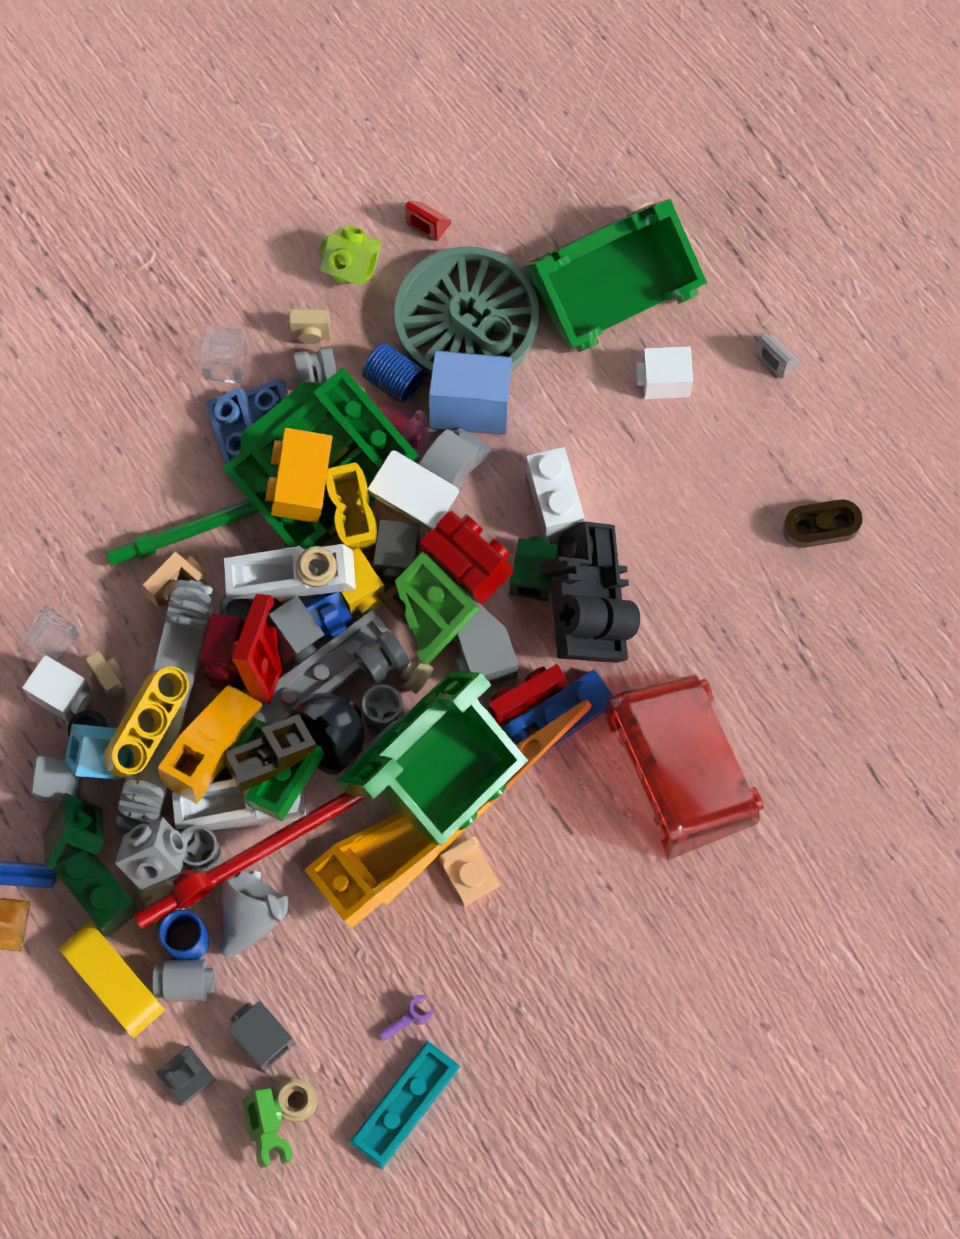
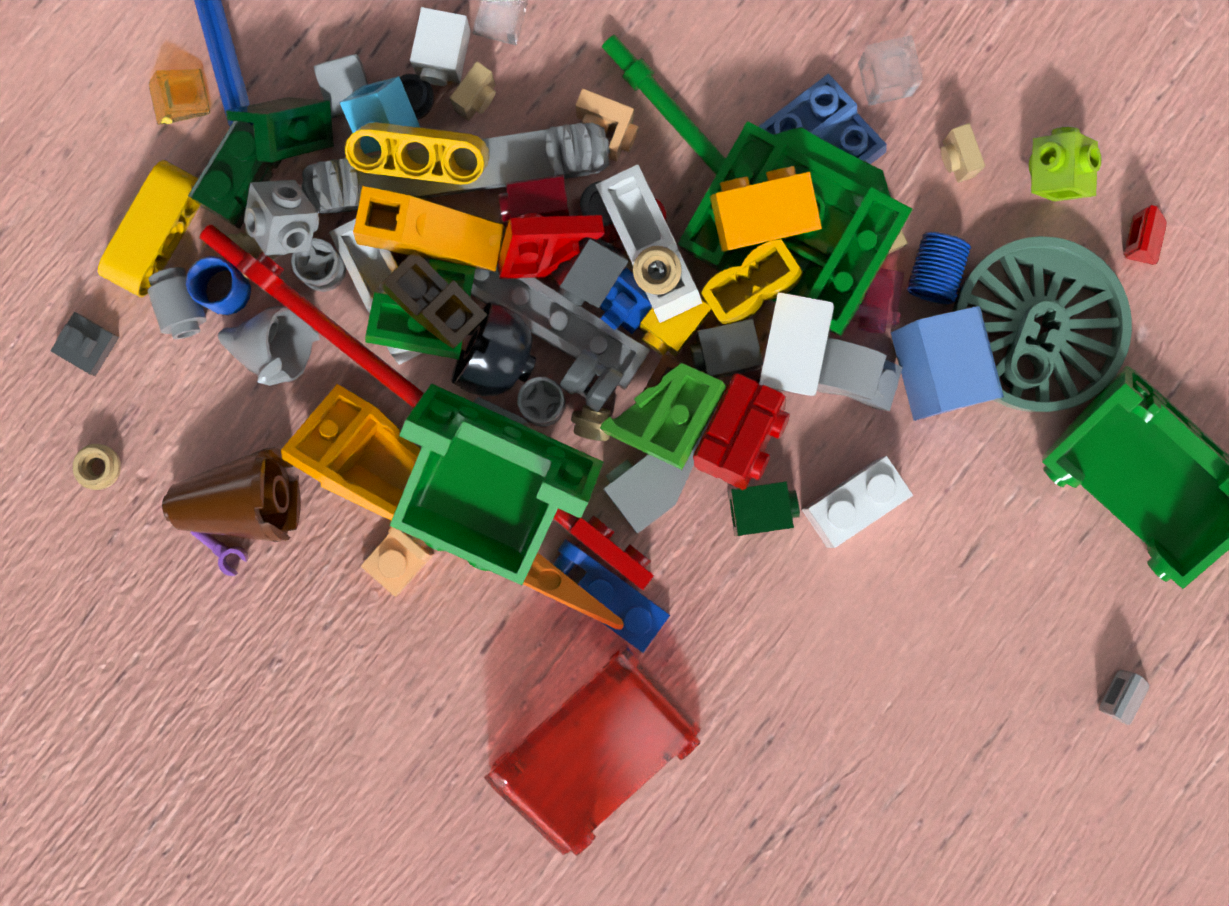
camera: 70 degrees right, 15 degrees up
(260, 1034) = (146, 405): dark grey brick -> none
(263, 1121) = (63, 441): bright green plate -> none
(322, 360) = (913, 179): light grey wheel -> none
(369, 984) = (238, 499): none -> reddish brown cone
(405, 1104) = (132, 580): teal tile -> none
(587, 596) = (742, 583): black plate -> none
(665, 372) = (1053, 577): white brick -> none
(820, 521) = (933, 813): dark brown plate -> none

